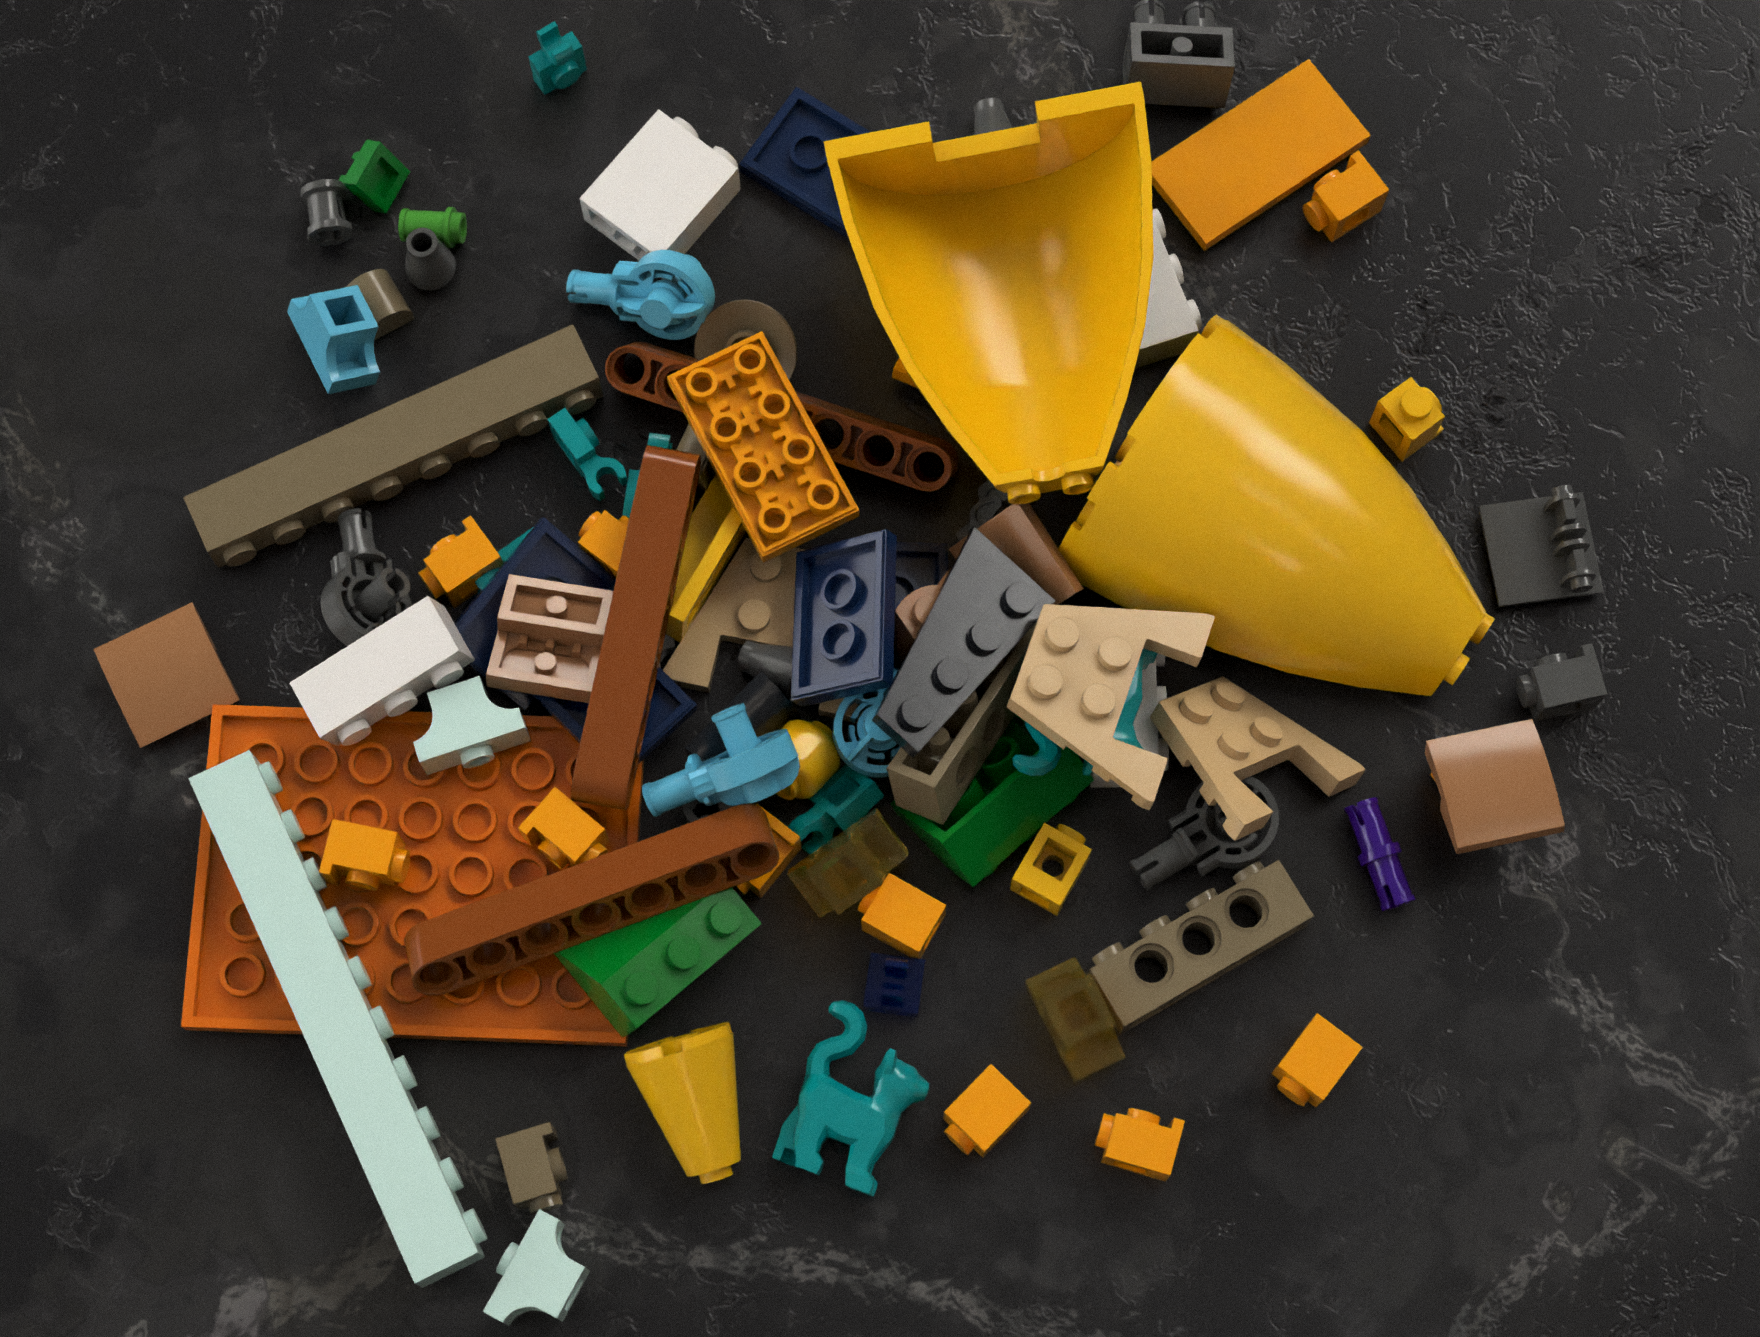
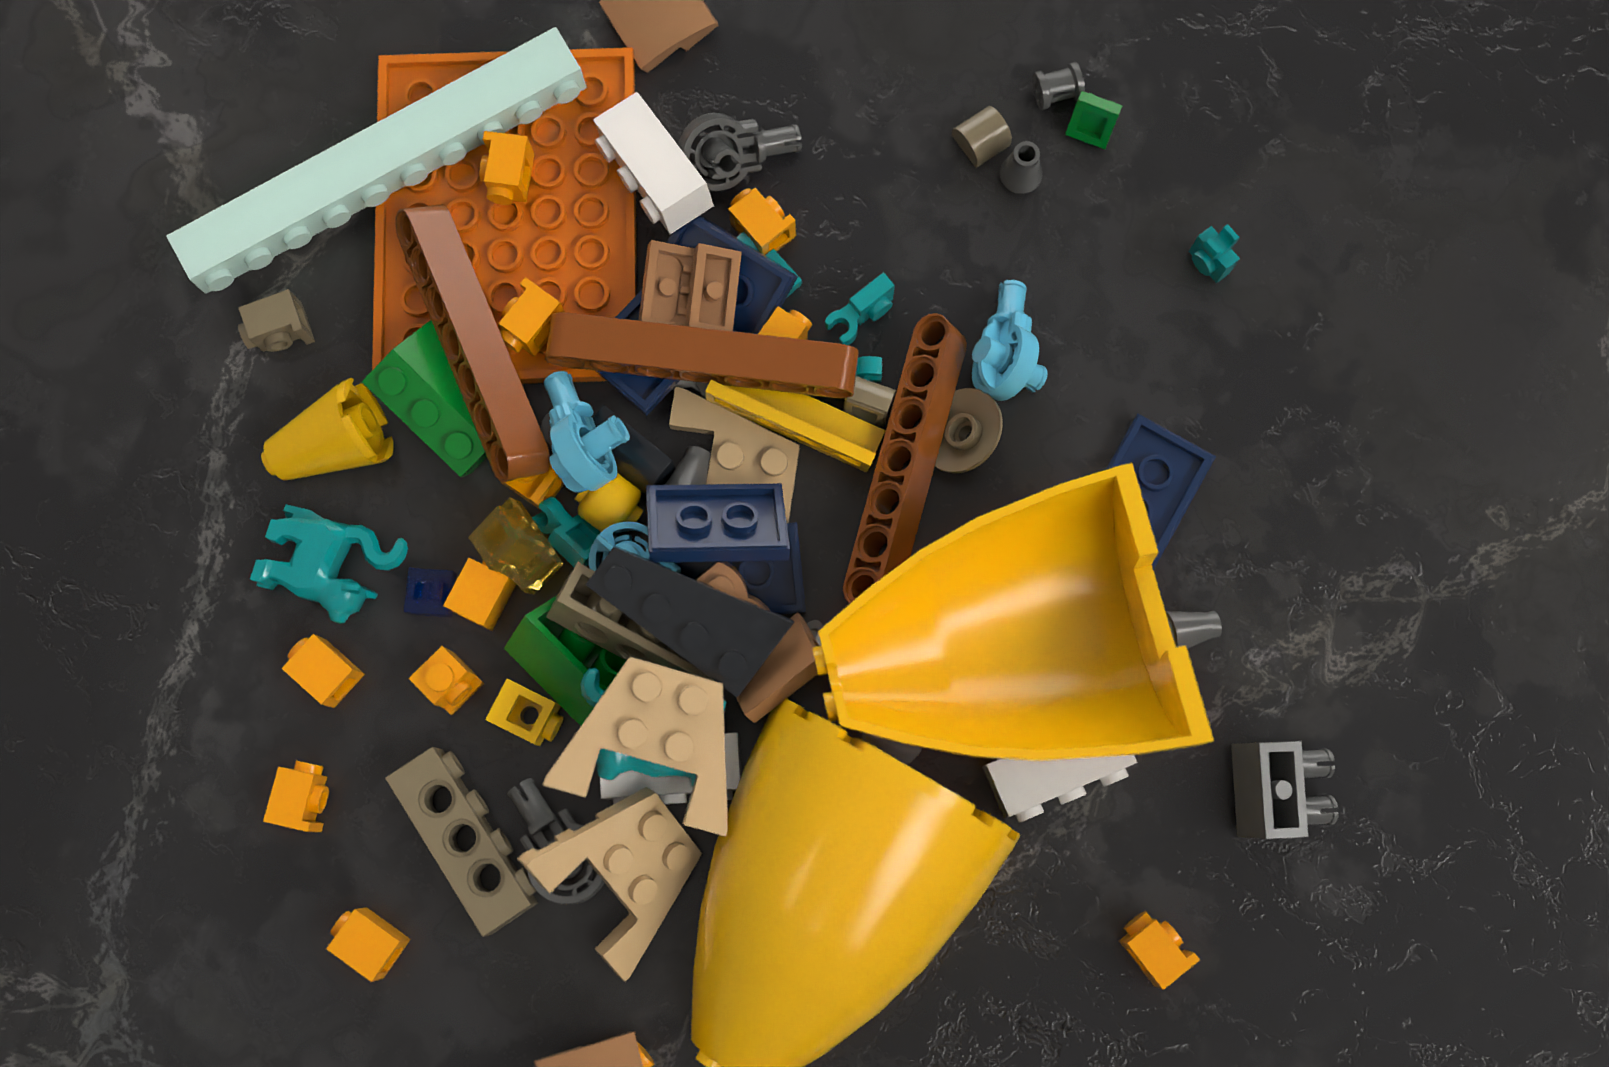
camera: 90 degrees right, 5 degrees up
(338, 337) = (945, 104): medium azure brick -> none
(394, 447) = (858, 162): dark tan brick -> none
(448, 225) = (1055, 180): bright green pin -> none
(467, 728) = (614, 234): light aqua brick -> none
(536, 1274) = (193, 335): light aqua brick -> none
(661, 189) = (1104, 350): white brick -> none
(763, 446) = (864, 444): light orange tile -> none
(1006, 959) = (446, 680): none -> light orange brick
(1076, 1018) = (399, 738): clear yellow brick -> none
(1257, 154) = (1194, 868): light orange tile -> none
(1379, 854) = (549, 995): dark purple pin -> none
(1413, 412) = (947, 1014): yellow brick -> none

